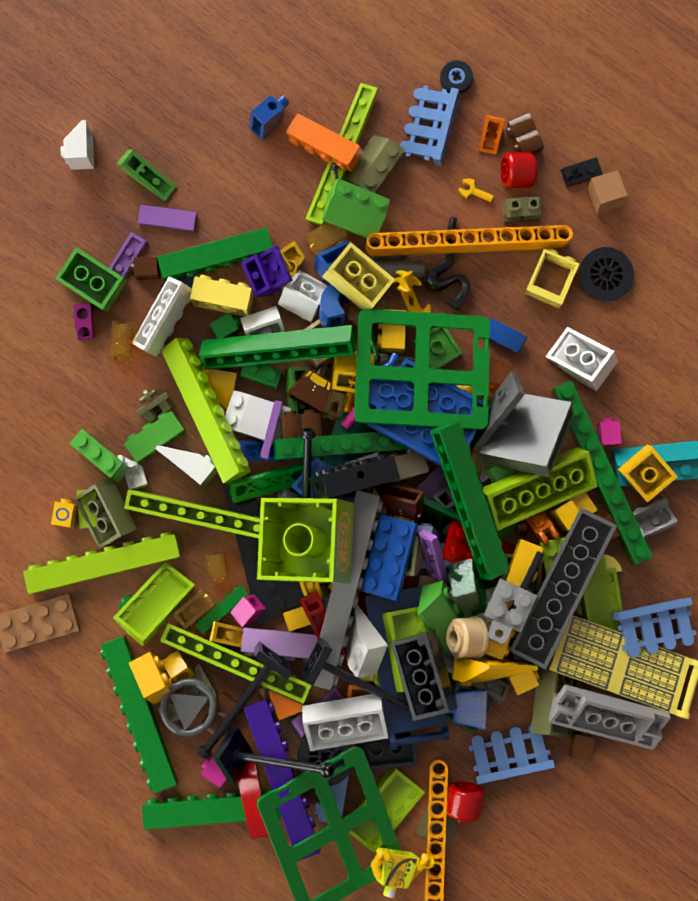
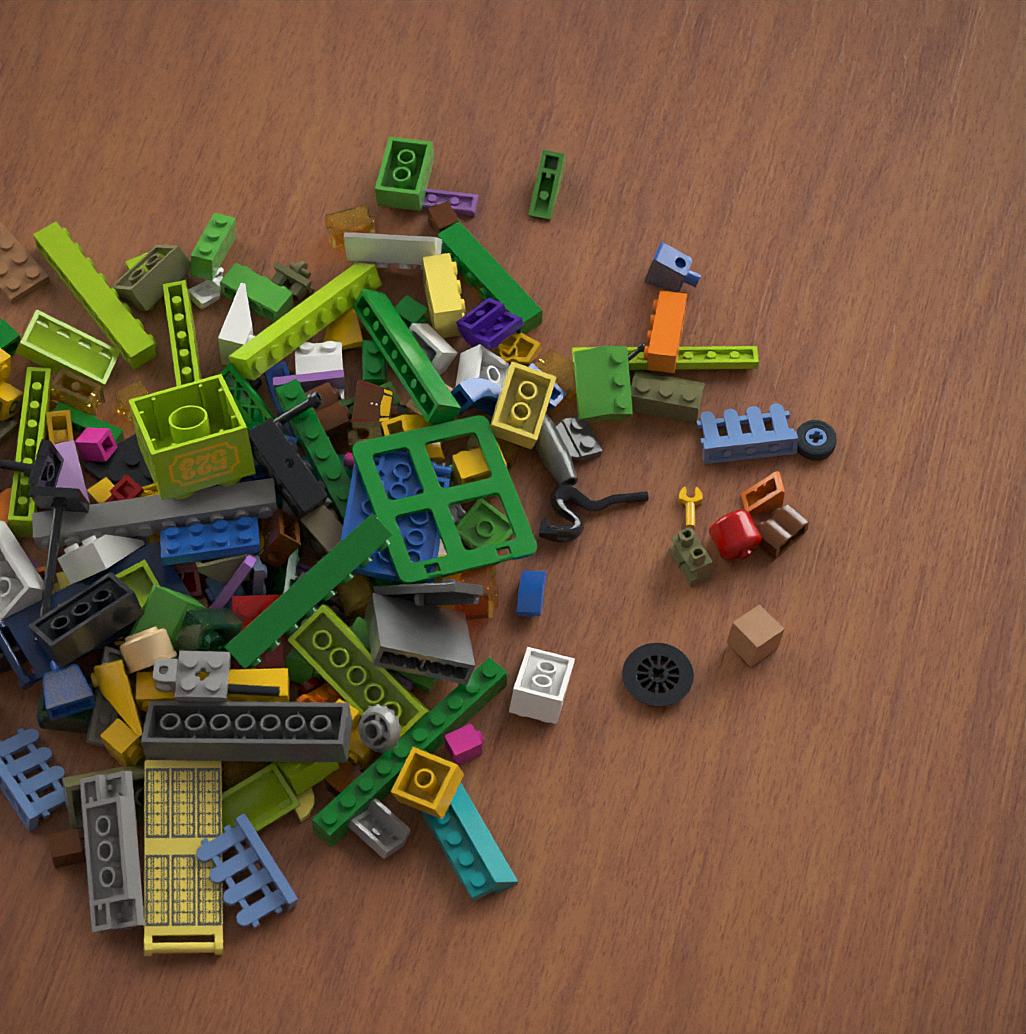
camera: 65 degrees right, 25 degrees down
(64, 513) = (135, 240): yellow brick -> none
(79, 147) = (546, 112): white slope -> none
(84, 321) = (356, 185): magenta leg -> none
(167, 218) = (509, 223): medium lavender tile -> none
(406, 281) = (539, 466): yellow piece -> none
(476, 235) = (624, 521): light orange beam -> none
(544, 295) = (624, 598): light yellow window -> none
(581, 172) = (773, 605): black plate -> none
(589, 490) = (379, 728): none -> light grey piece

